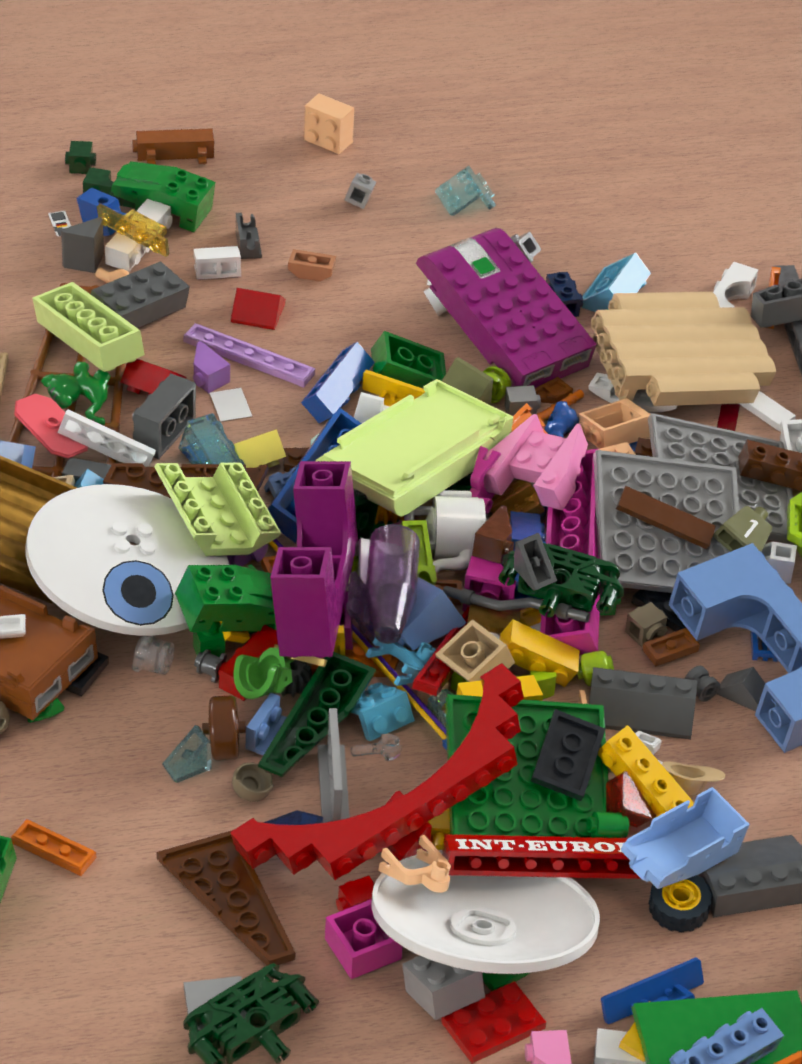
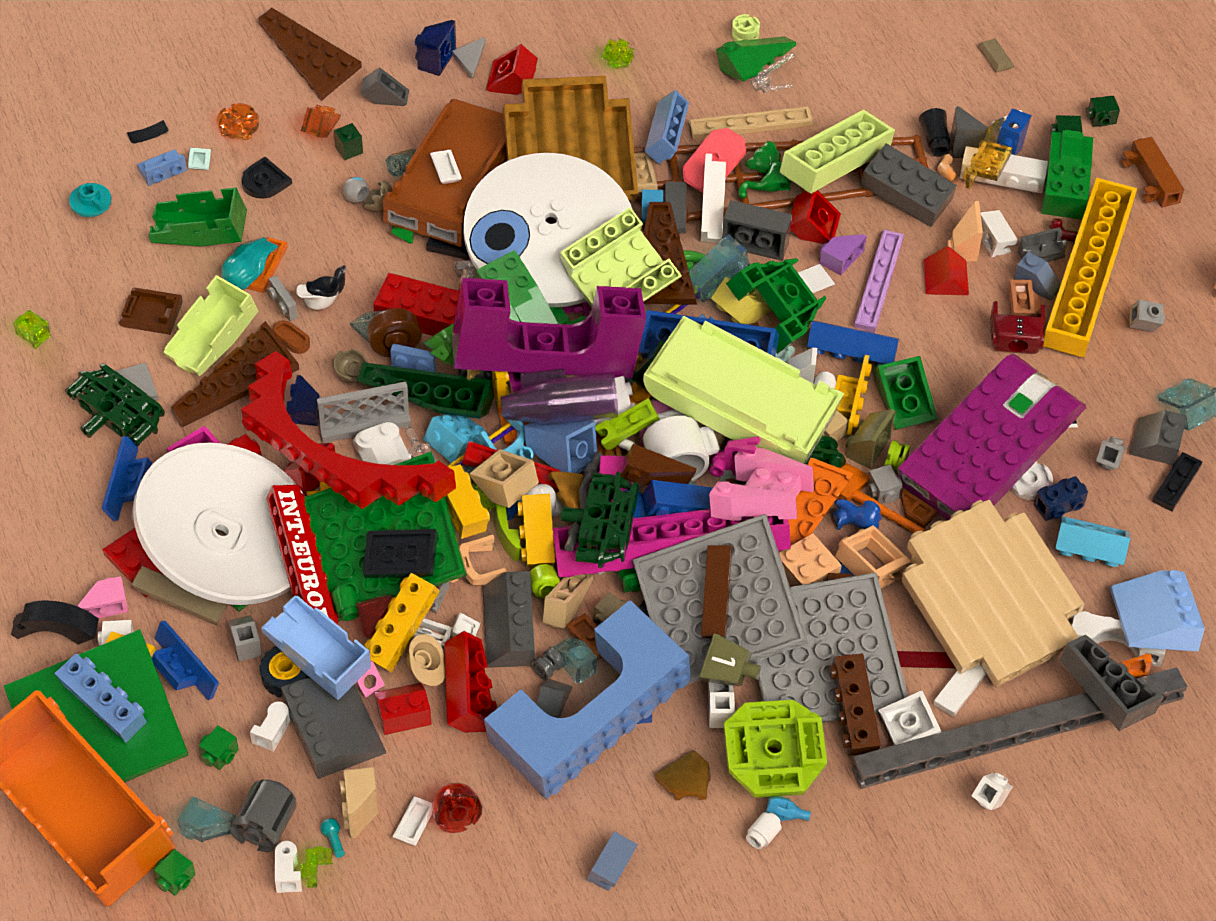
camera: 80 degrees right, 10 degrees up
(52, 859) = (247, 262): none -> teal hair
(66, 268) = (936, 131): none -> black plant
(92, 976) = (147, 309): none -> reddish brown container
(122, 832) = (283, 298): none -> light grey piece
(127, 788) = (322, 291): none -> black hair
(157, 900) = (211, 326): none -> yellowish green piece
(177, 704) = (431, 303): none -> red brick
(179, 834) = (292, 337): none -> dark orange tile
(220, 272) = (968, 234): none -> light nougat slope
(224, 224) = (1066, 234): none -> dark red arm
(265, 408) = (783, 292): none -> green wedge
(278, 248) = (1038, 270): none -> sand blue slope
(295, 211) = (1089, 267): none -> yellow brick
(351, 275) = (1017, 332): none -> dark red piece
(371, 1014) = (124, 478): none -> blue bracket
(377, 777) = (381, 445): none -> white slope
(434, 876) = (252, 479): light nougat piece -> none
(506, 213) = (1159, 436): none -> dark grey slope
(533, 562) = (594, 483): dark grey slope -> none
(553, 226) = (1177, 481): none -> black tile
(558, 989) = (166, 591): none -> dark tan tile
(630, 653) = (565, 600): none -> tan slope
(630, 928) = (245, 638): none -> light grey slope
(698, 652) = (578, 658): none -> clear light blue slope
(714, 257) = (1159, 612): none -> light blue slope
(721, 749) = (467, 684): none -> red wedge
(750, 799) = (403, 708): none -> red slope
(754, 923) = (272, 728): none -> white leg
(778, 973) = (218, 748): none -> green brick

